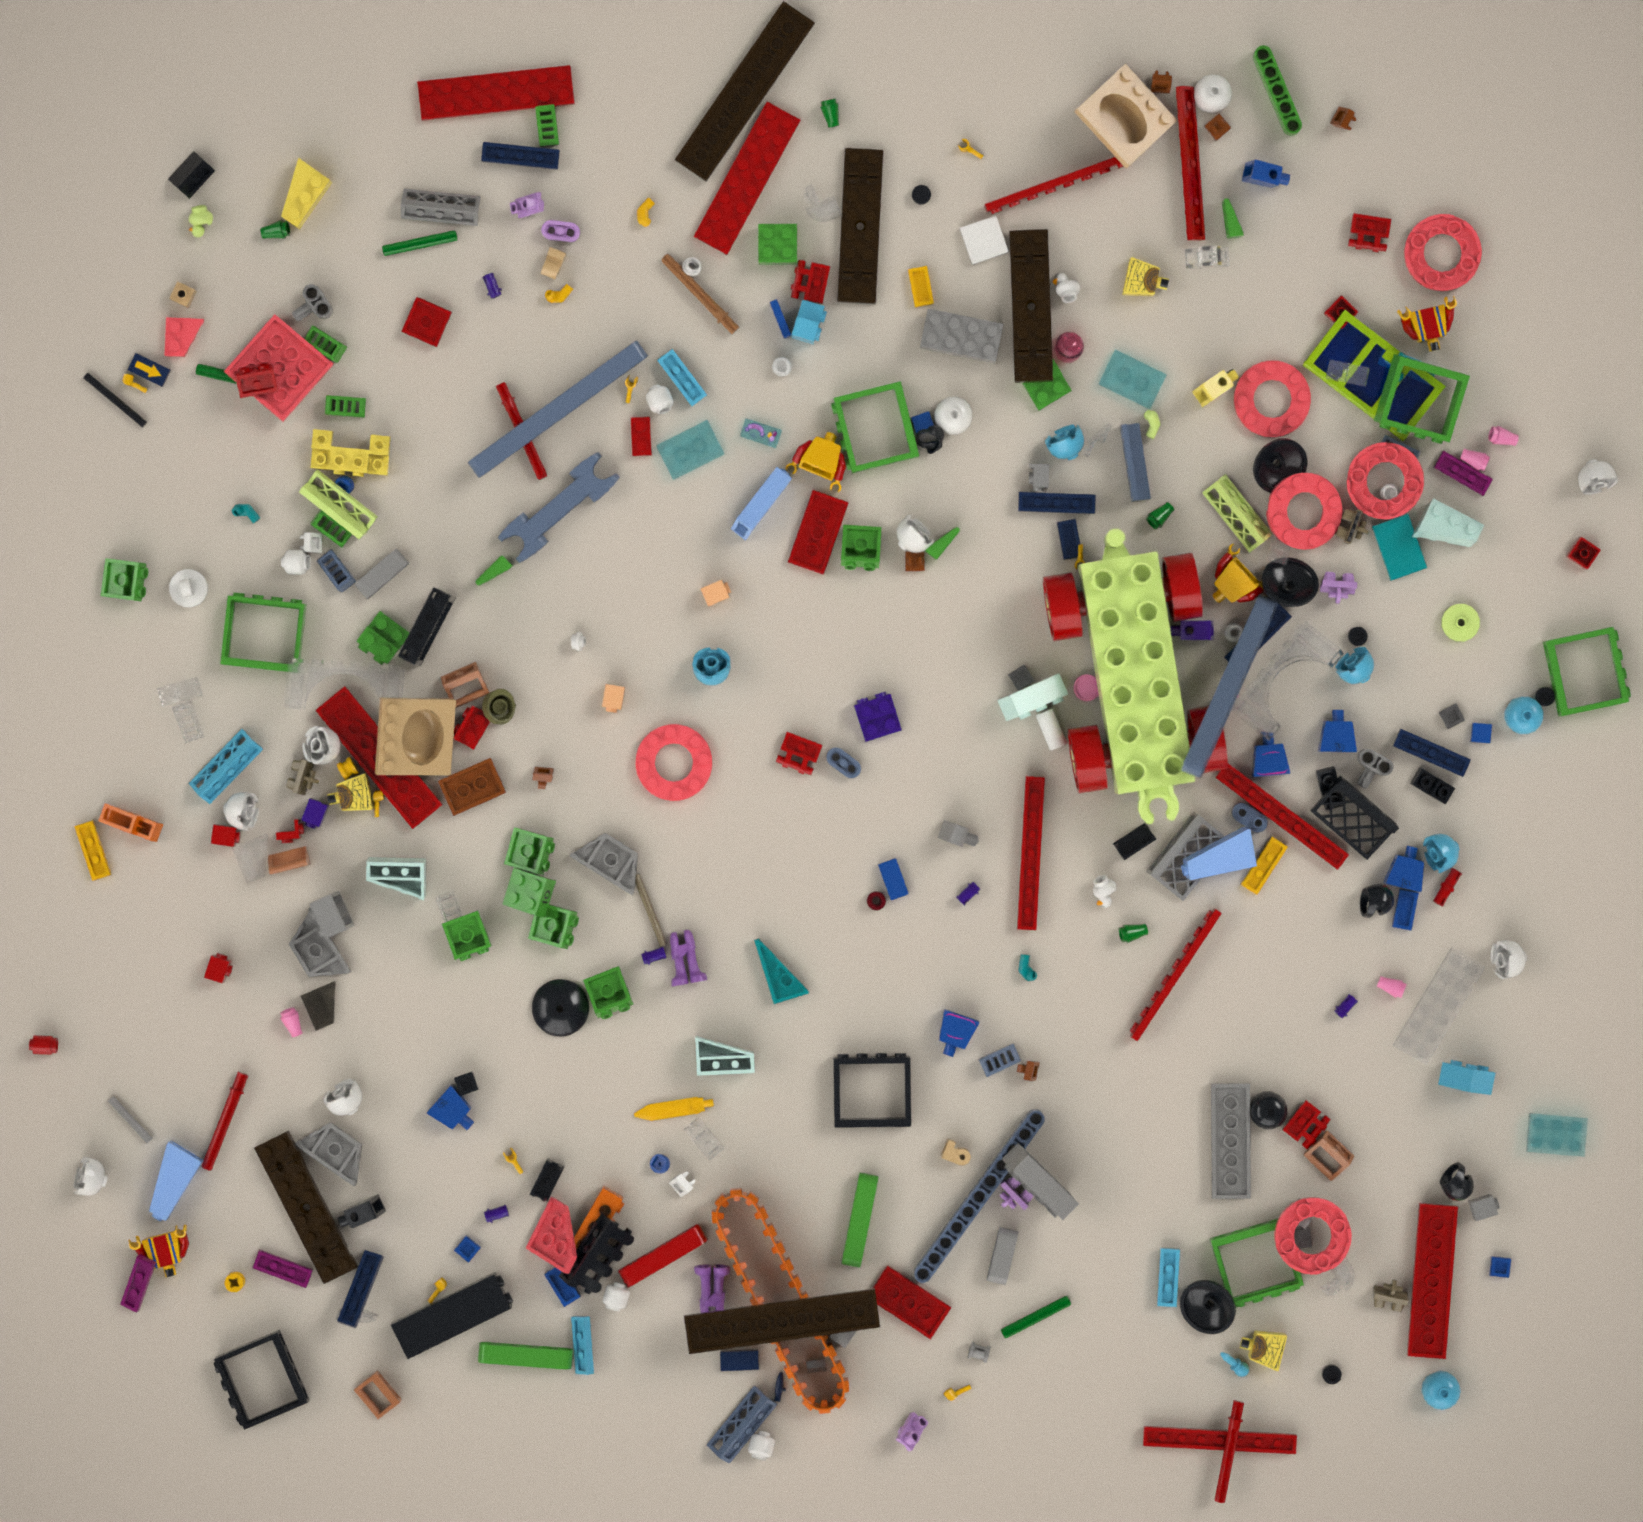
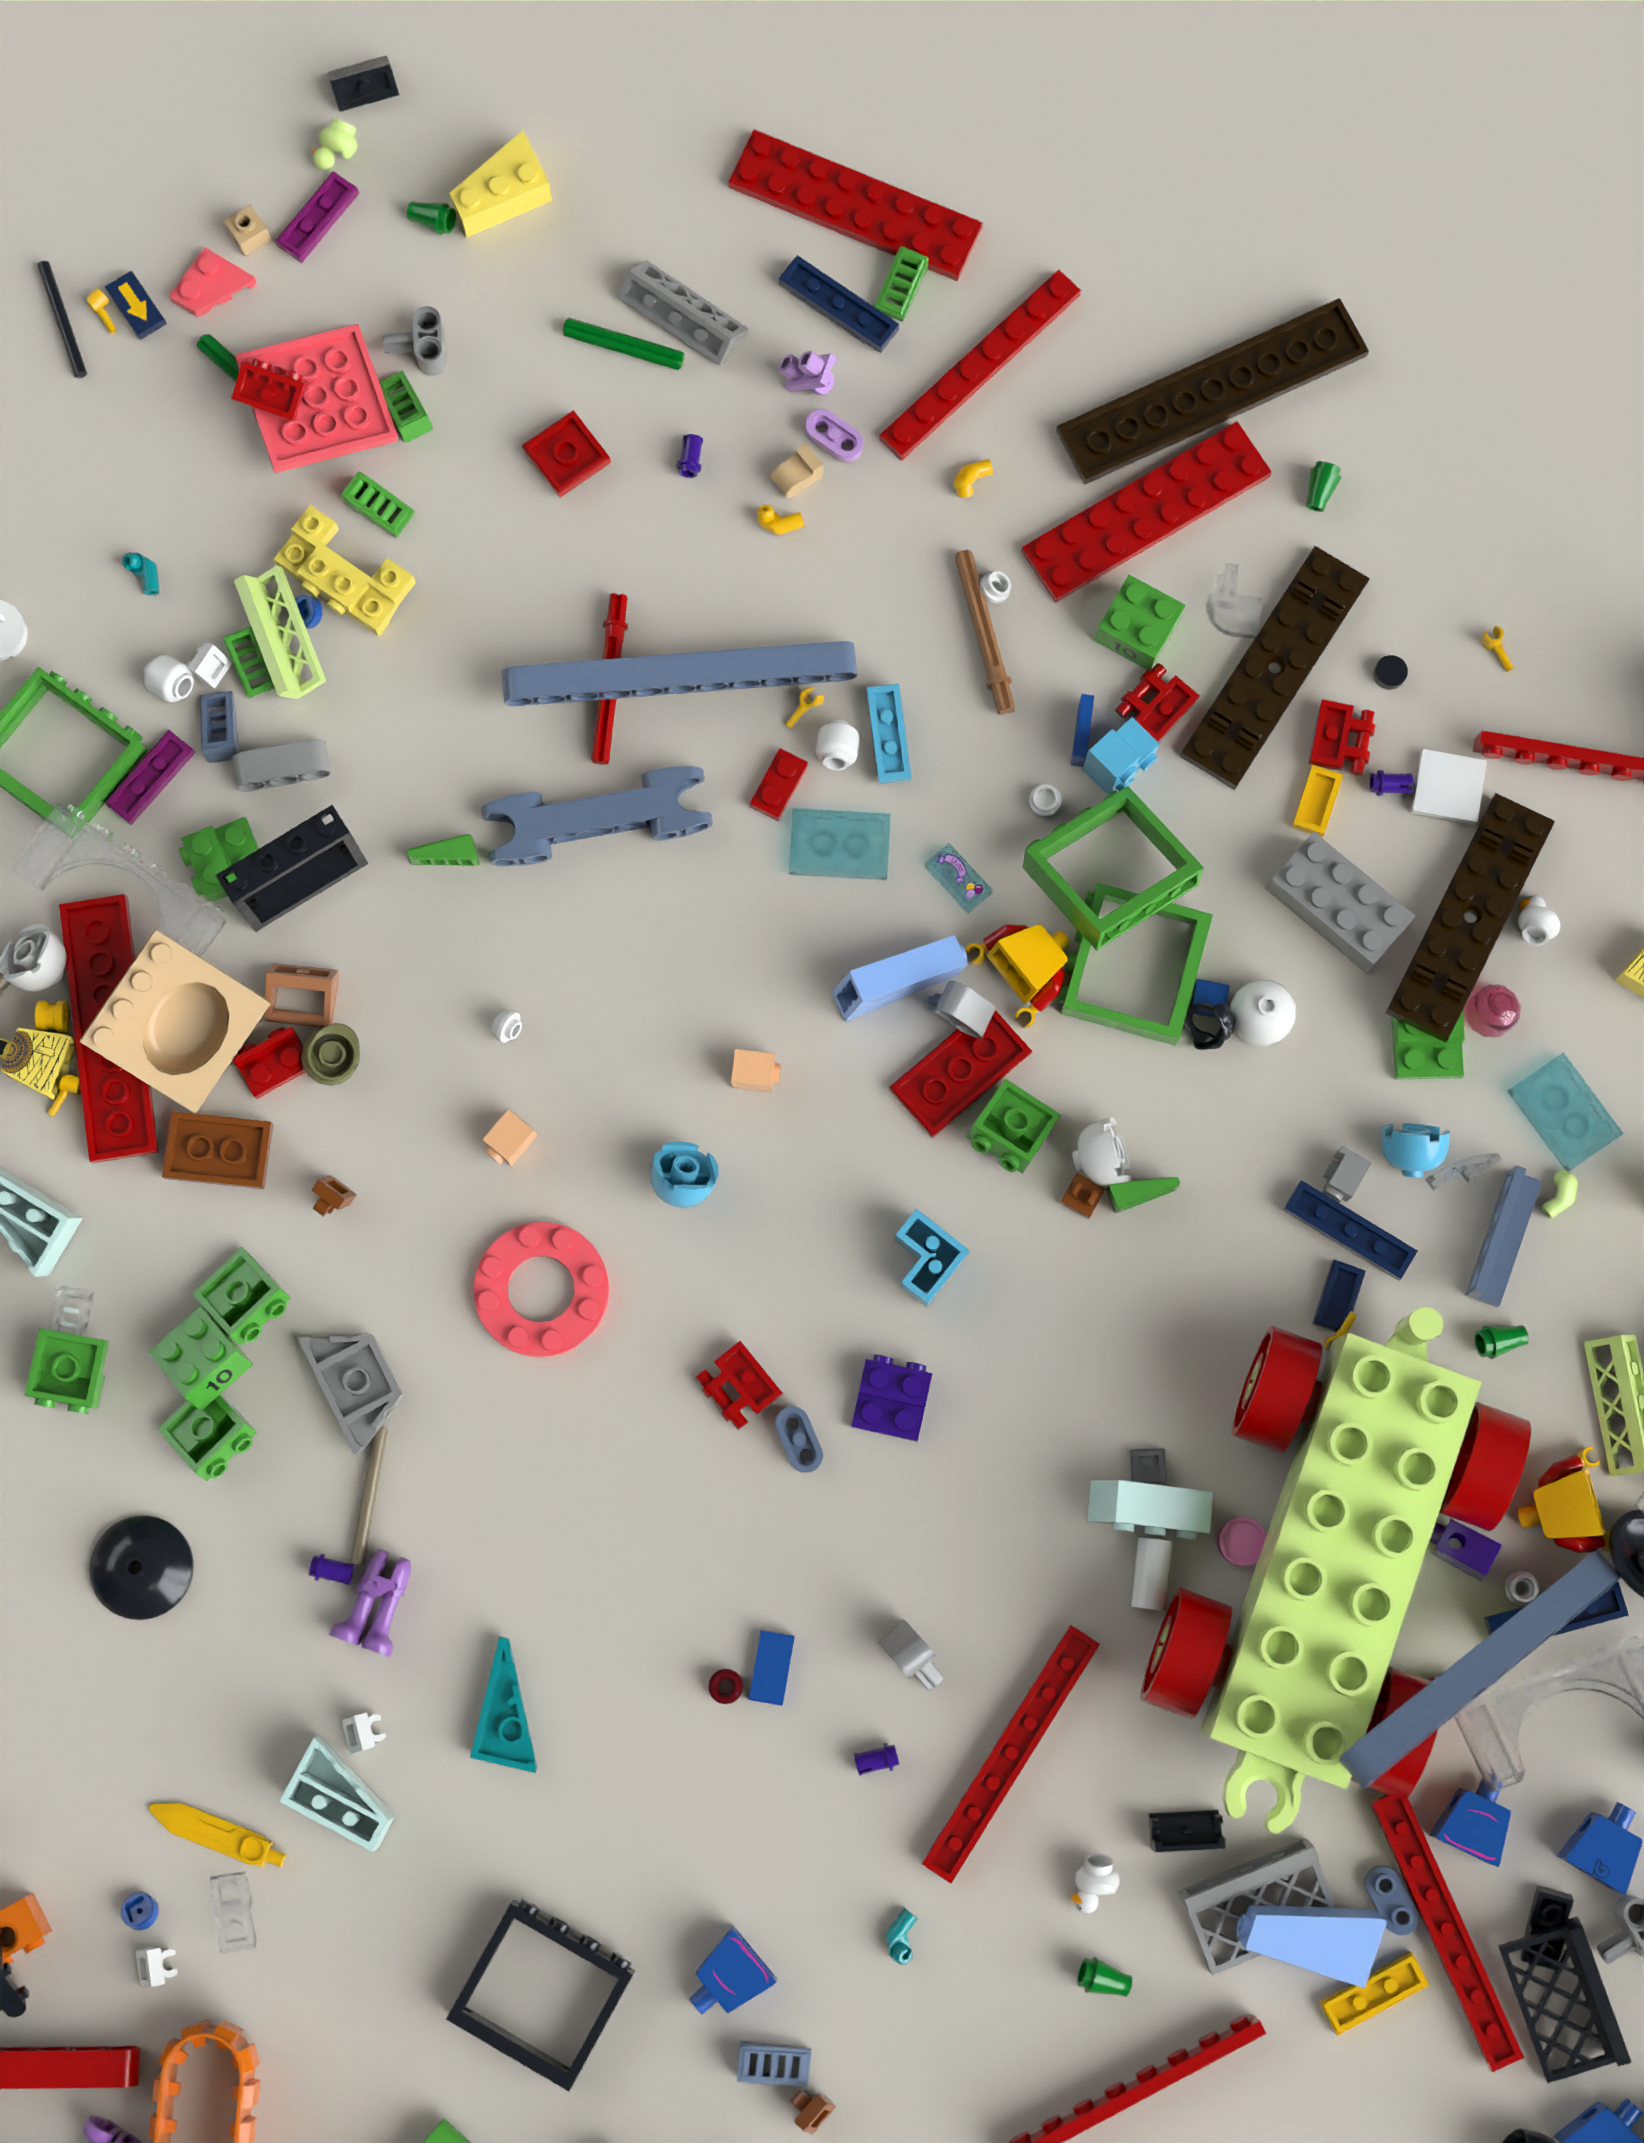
camera: 35 degrees right, 10 degrees down
(214, 264) = (317, 217): none -> magenta tile
(317, 618) = (150, 777): none -> magenta tile
(608, 993) = (226, 1587): bright green plate -> none
(614, 145) = (980, 365): none -> red plate
(714, 1023) = (359, 1732): none -> white tile
(802, 503) = (962, 1008): none -> light grey beam
(860, 633) = (937, 1255): none -> medium azure brick
(863, 400) = (1104, 930): none -> bright green window
(909, 247) = (1331, 736): none -> red plate
(953, 256) = (1390, 783): none -> dark purple pin

